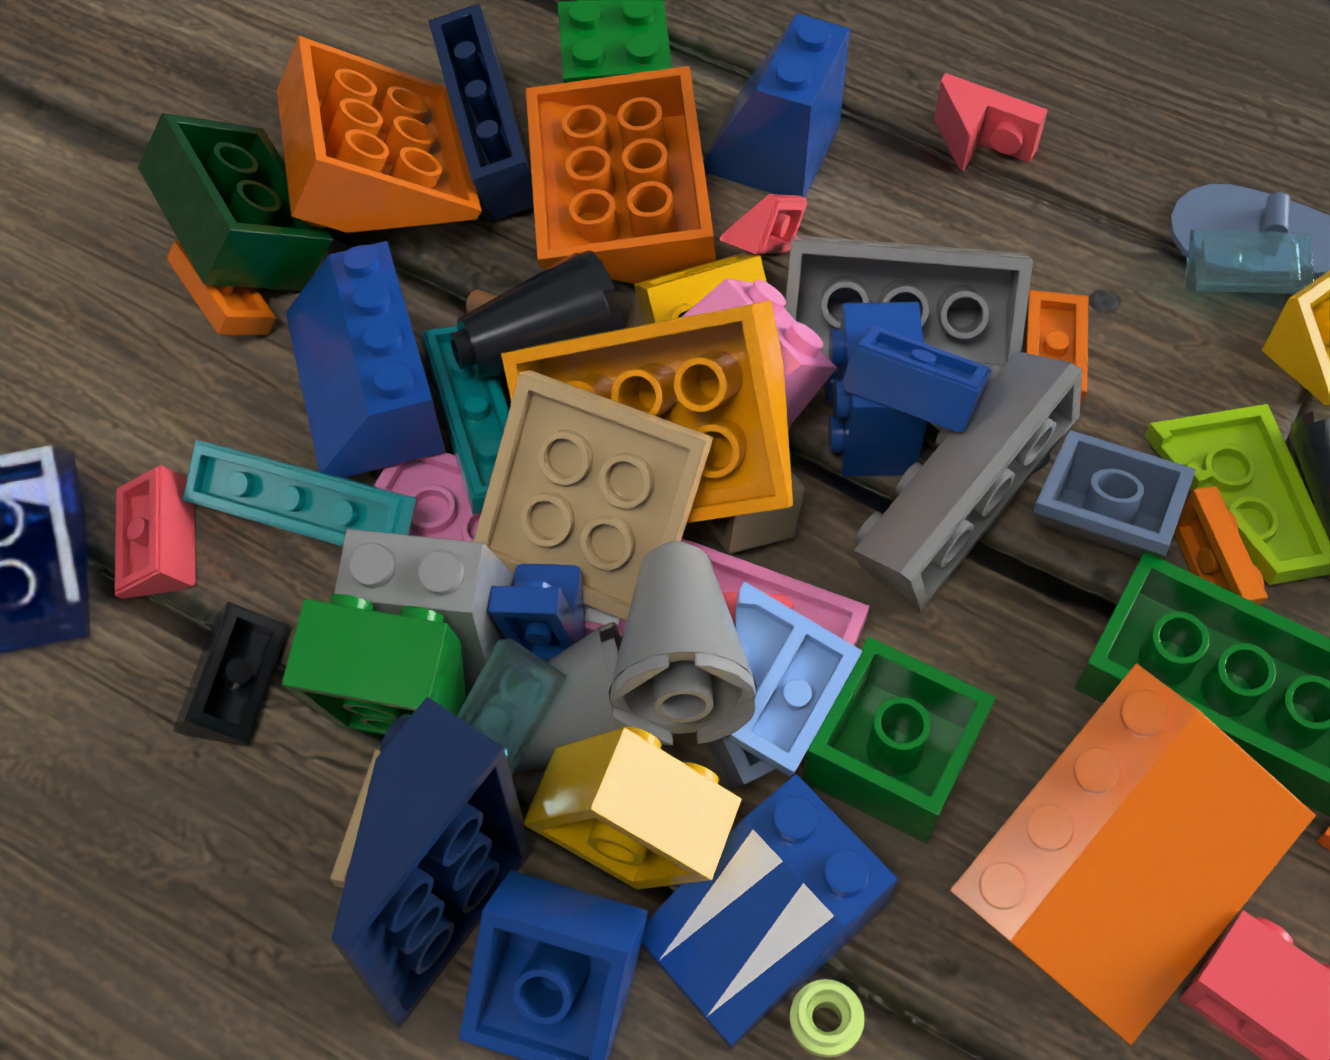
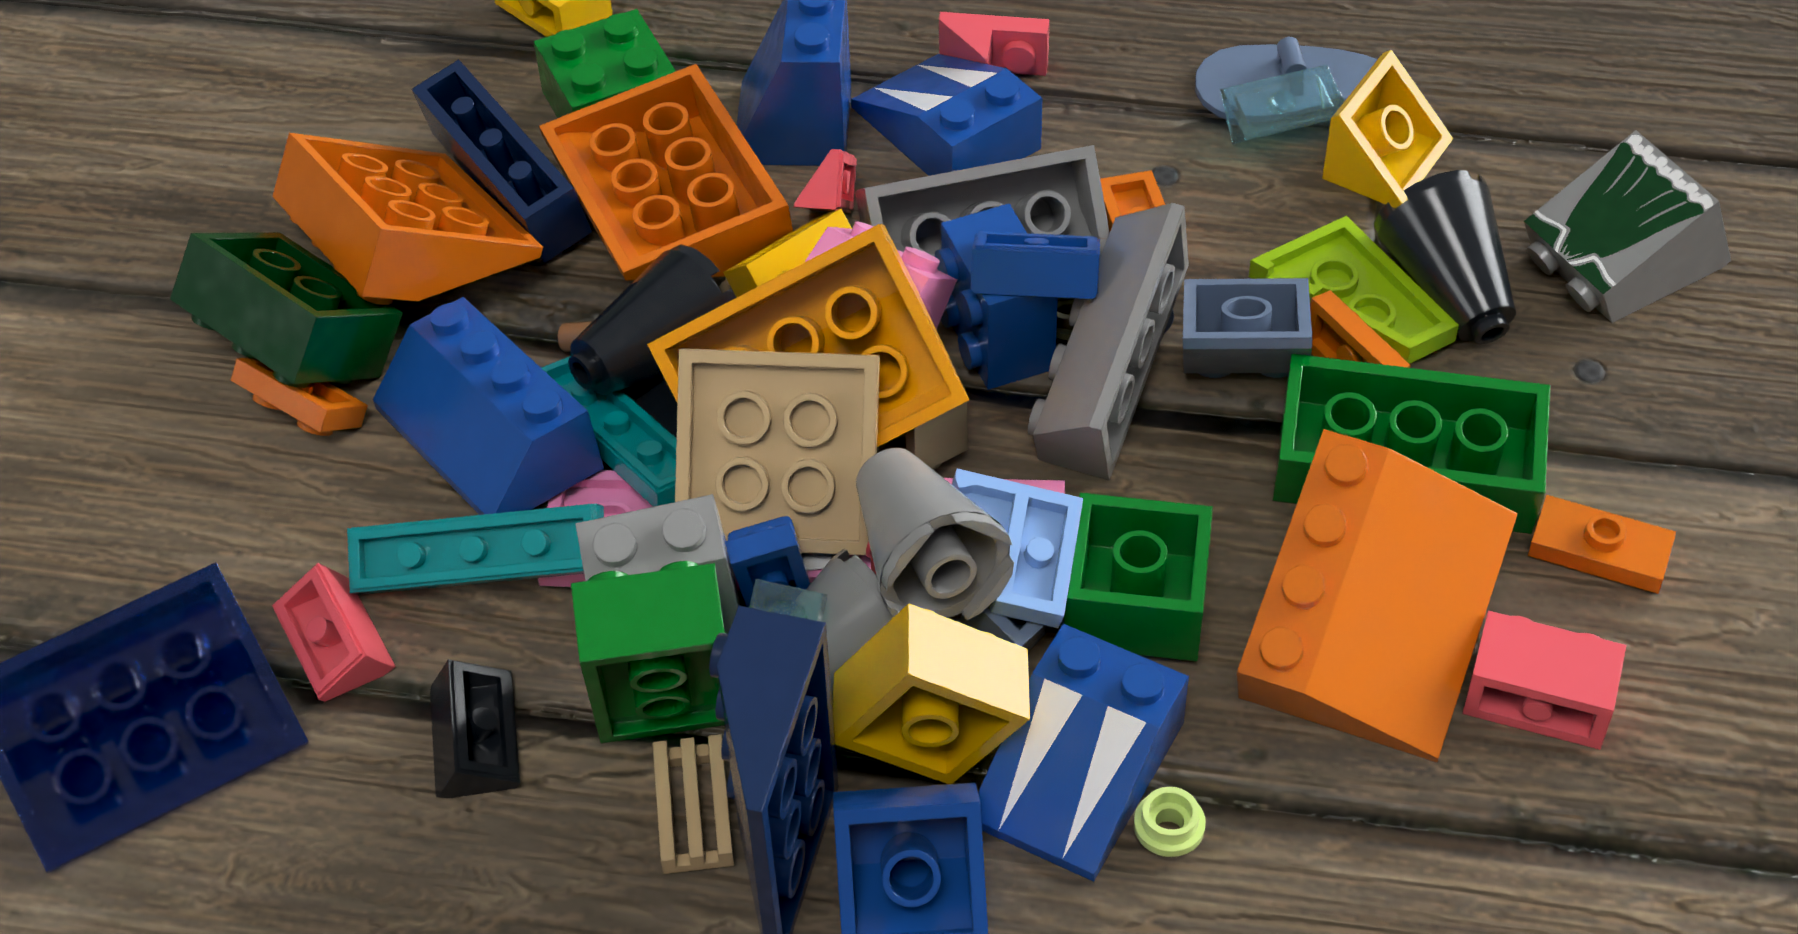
camera: 20 degrees left, 10 degrees down
(922, 182) = (955, 114): none -> blue slope

